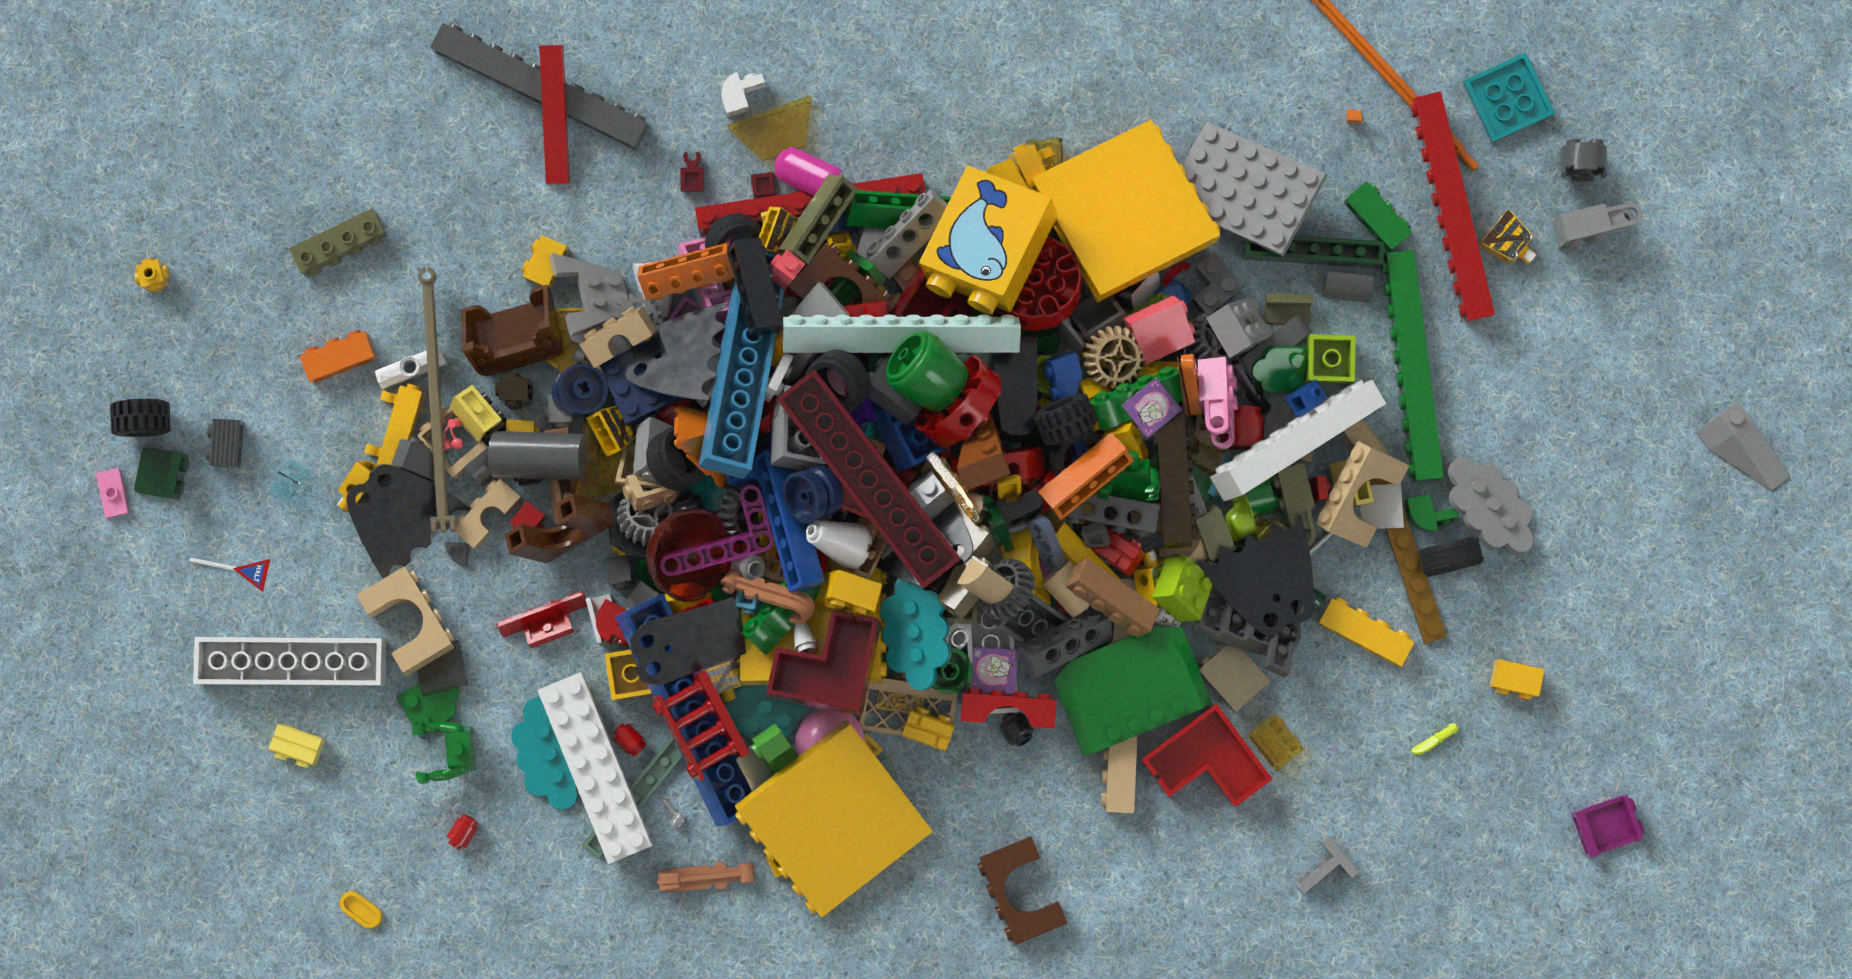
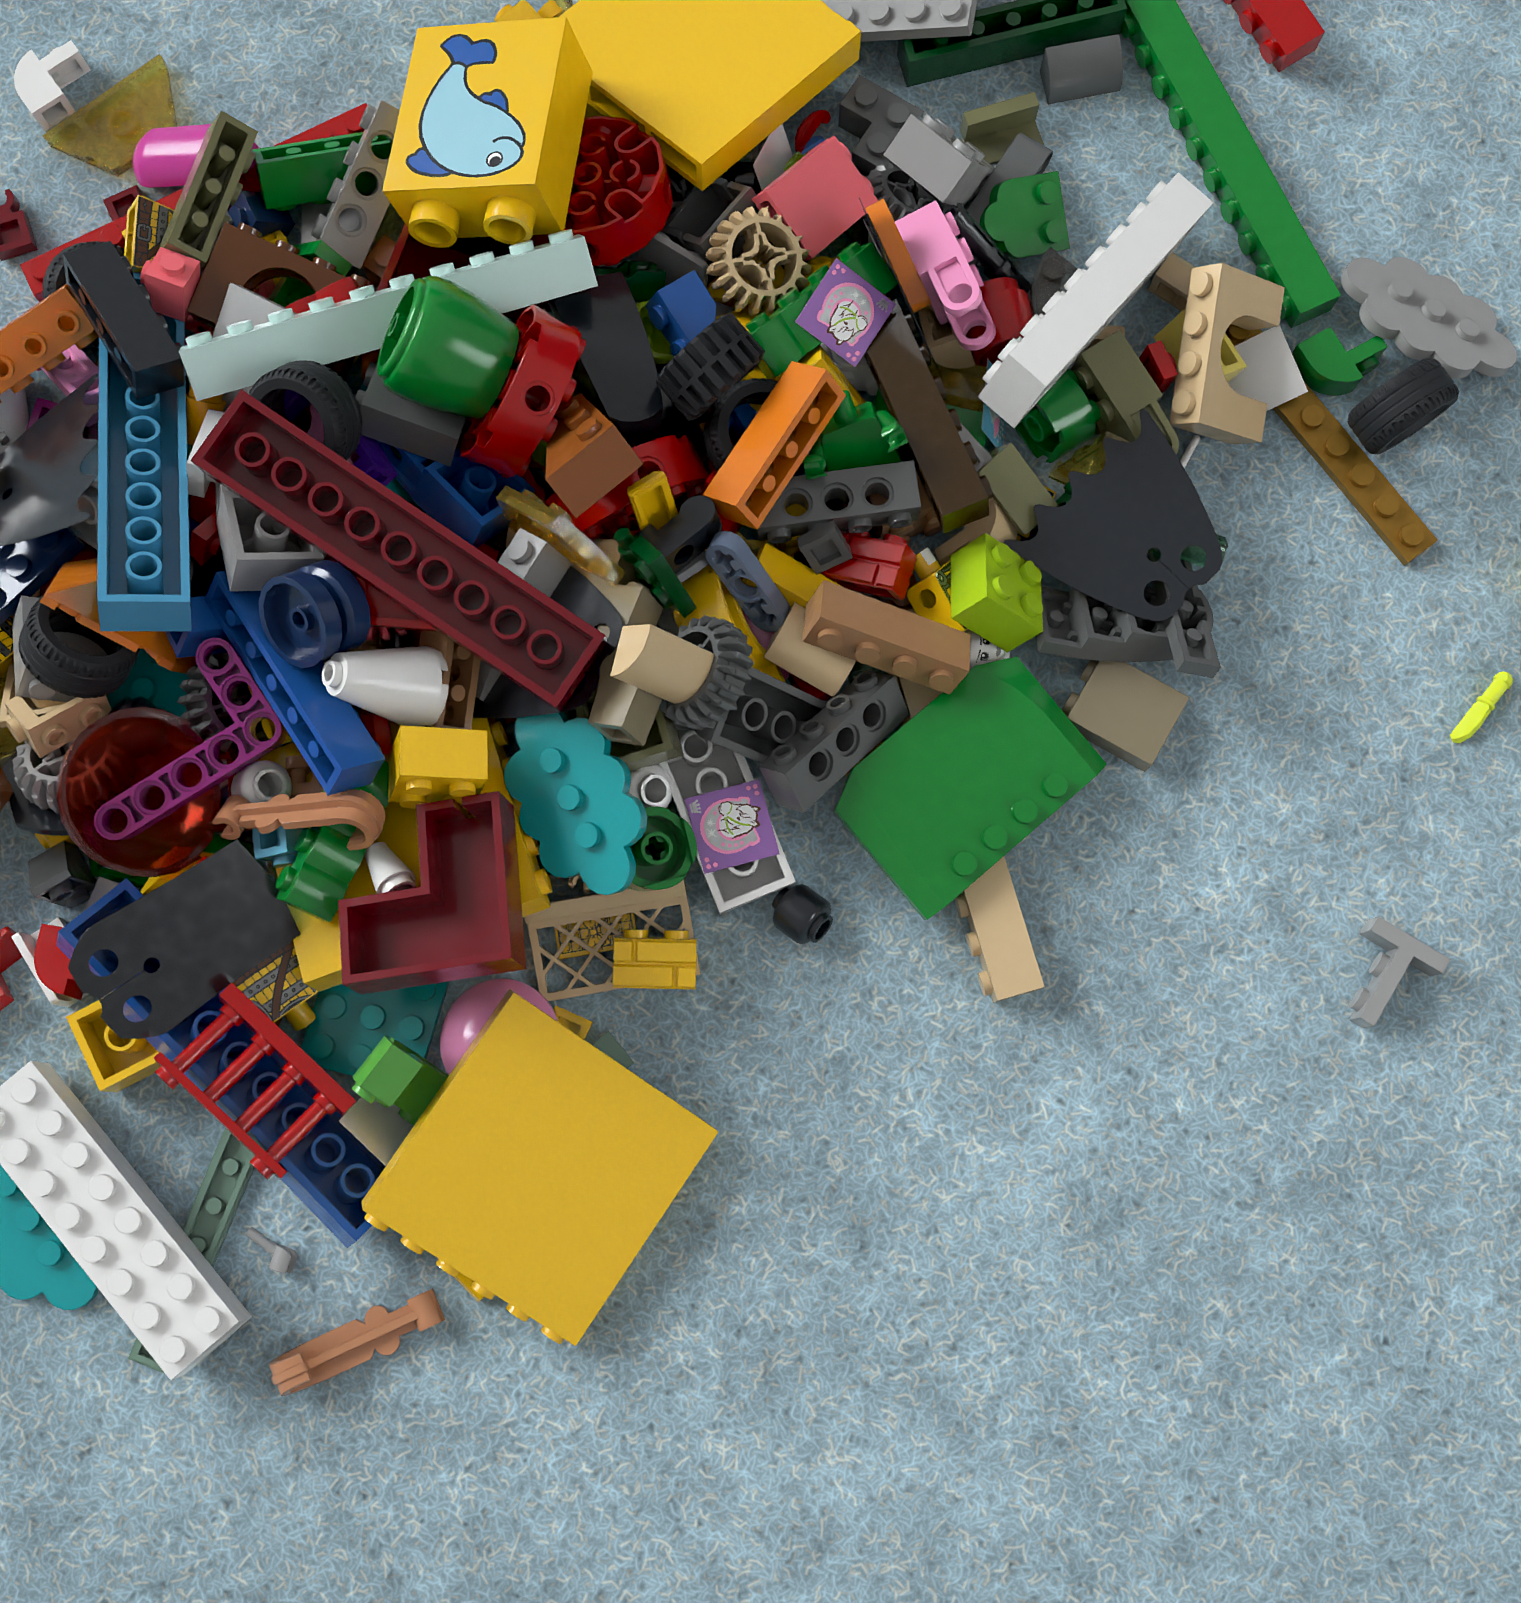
camera: 15 degrees left, 5 degrees down
(629, 739) = (158, 1149): red brick -> none
(978, 705) = (828, 866): red arch -> none
(1021, 924) = (921, 1239): reddish brown arch -> none
(1211, 746) = (1136, 835): red piece -> none
(1241, 519) = (1048, 450): lime piece -> none
(1275, 741) = (1231, 793): clear yellow bracket -> none
(1306, 398) = (1082, 238): blue brick -> none
(1330, 359) = (1098, 179): lime brick -> none
(1365, 632) = (1309, 573): yellow brick -> none

